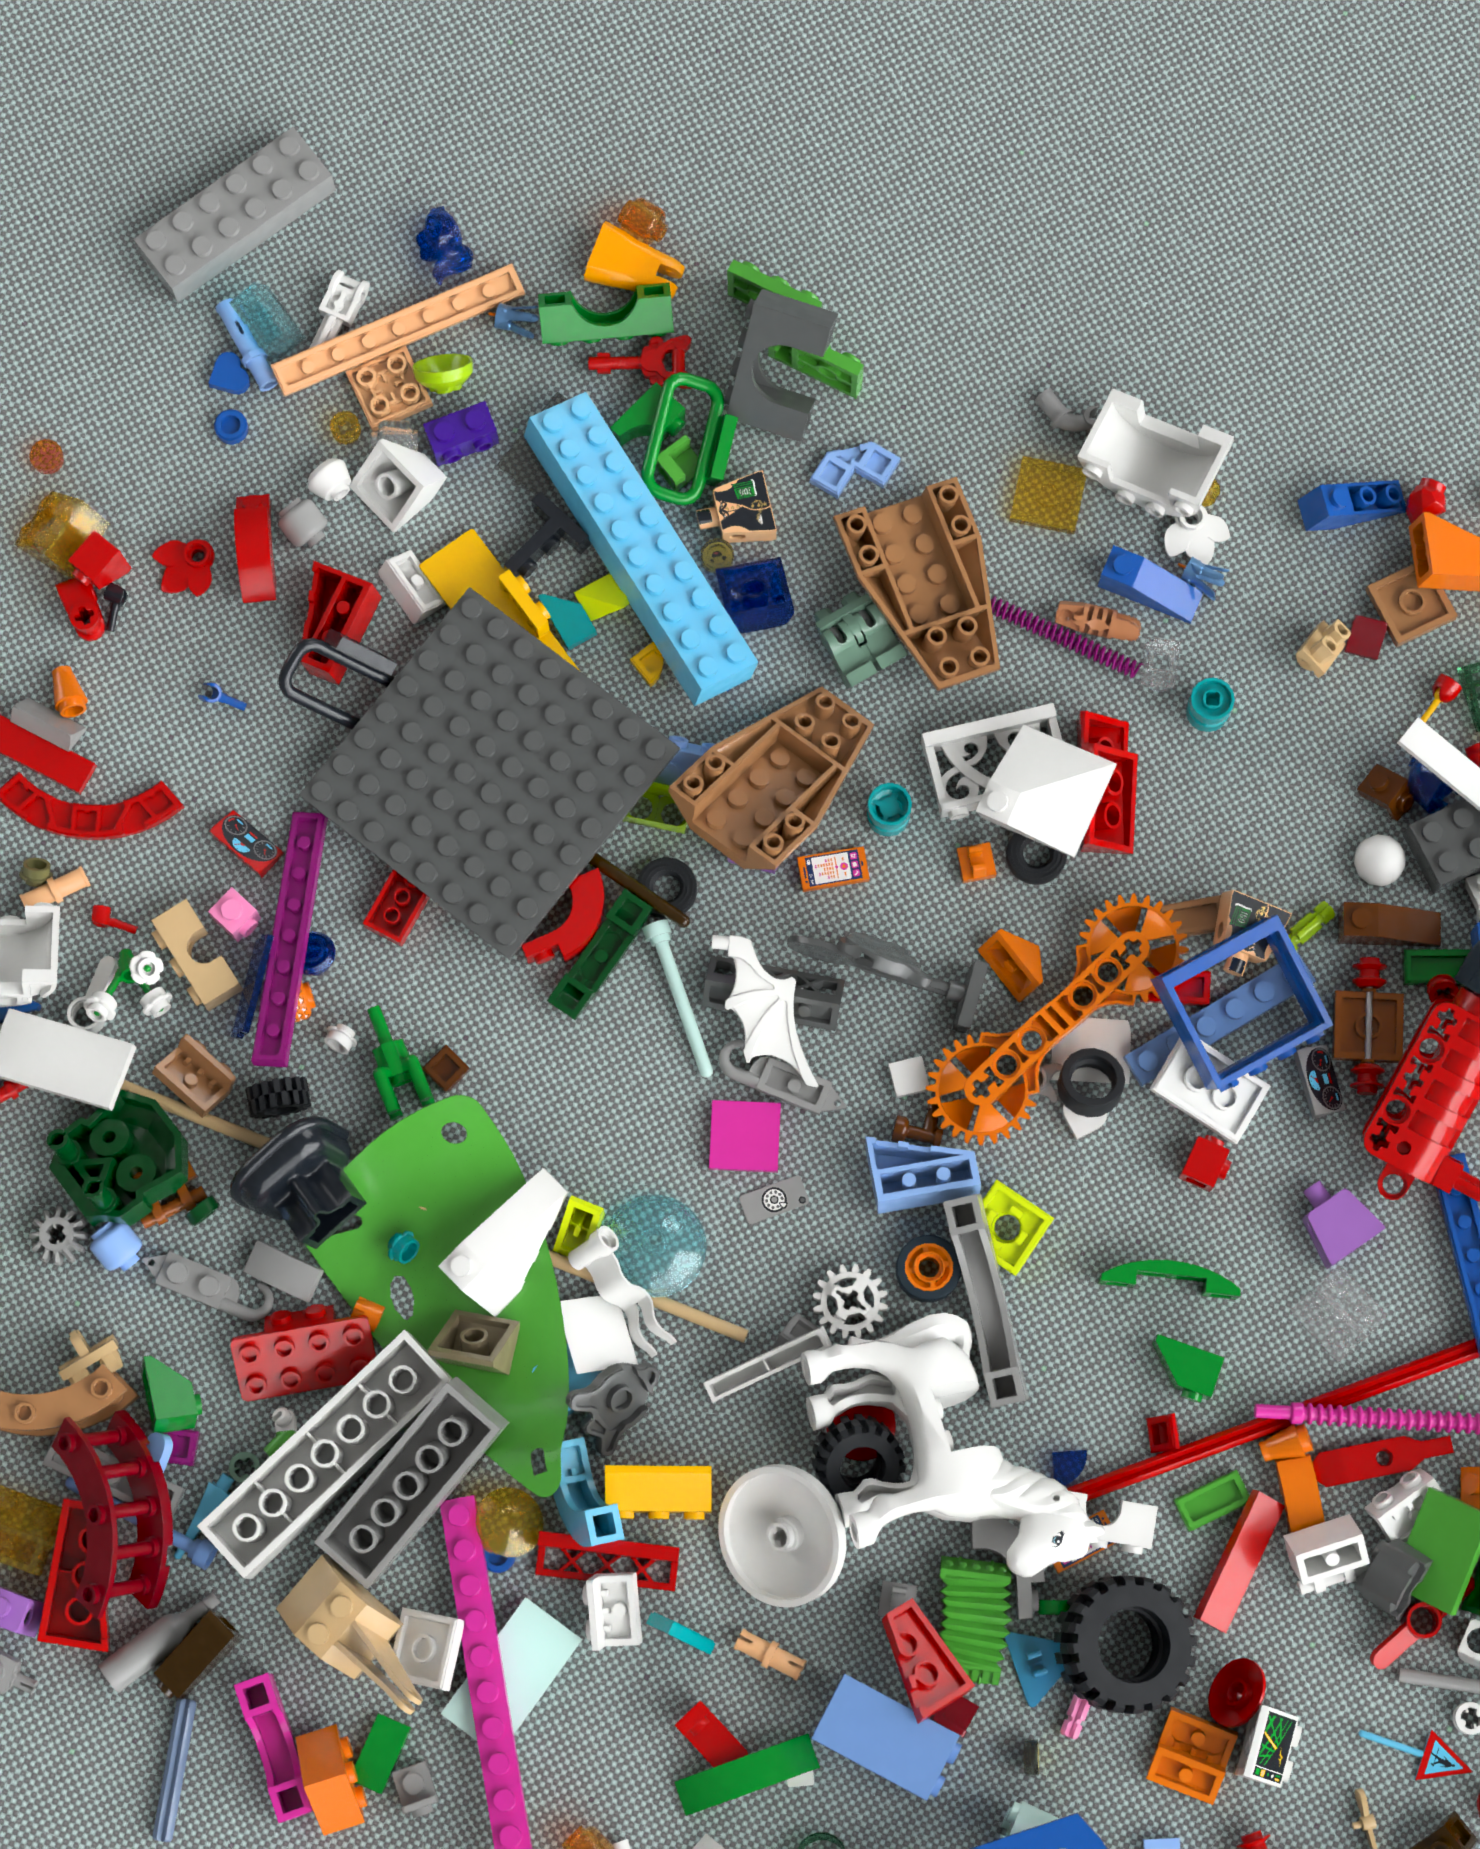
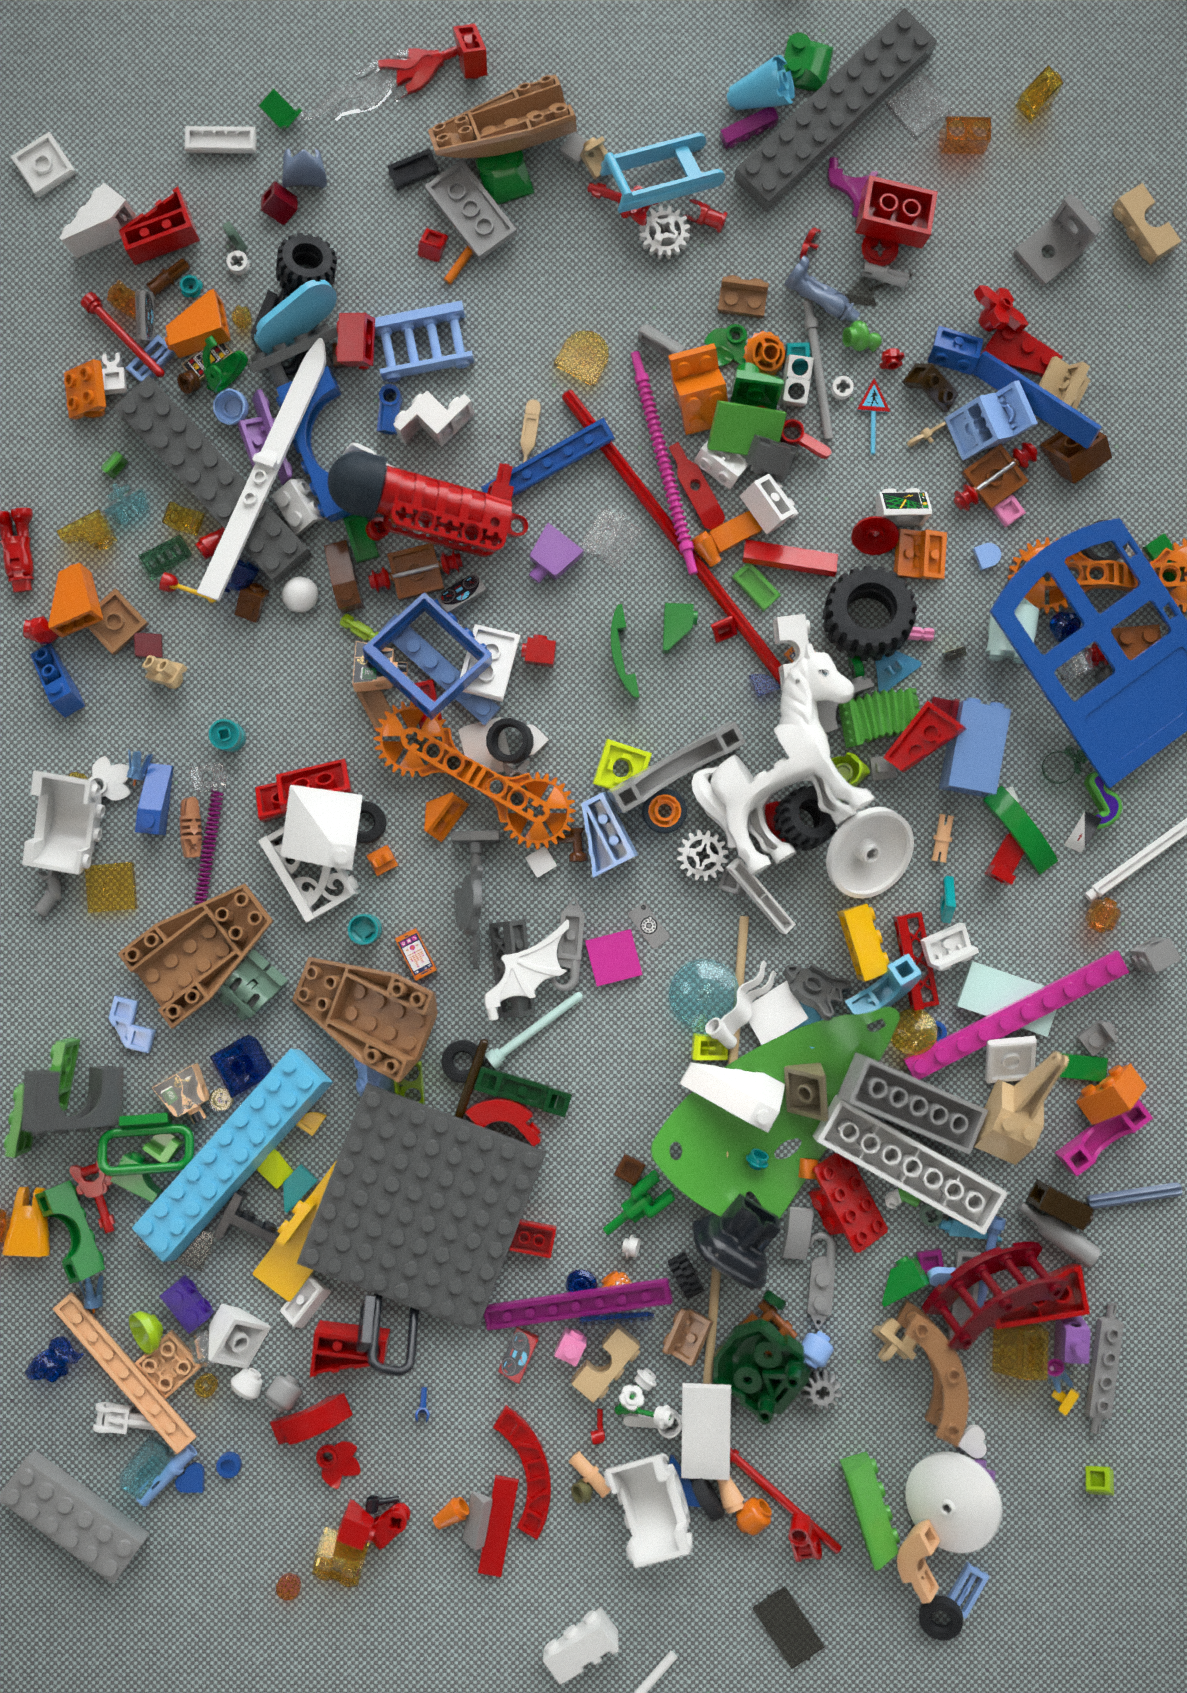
camera: 105 degrees left, 10 degrees up
(906, 1545) = (851, 768): none -> lime hair

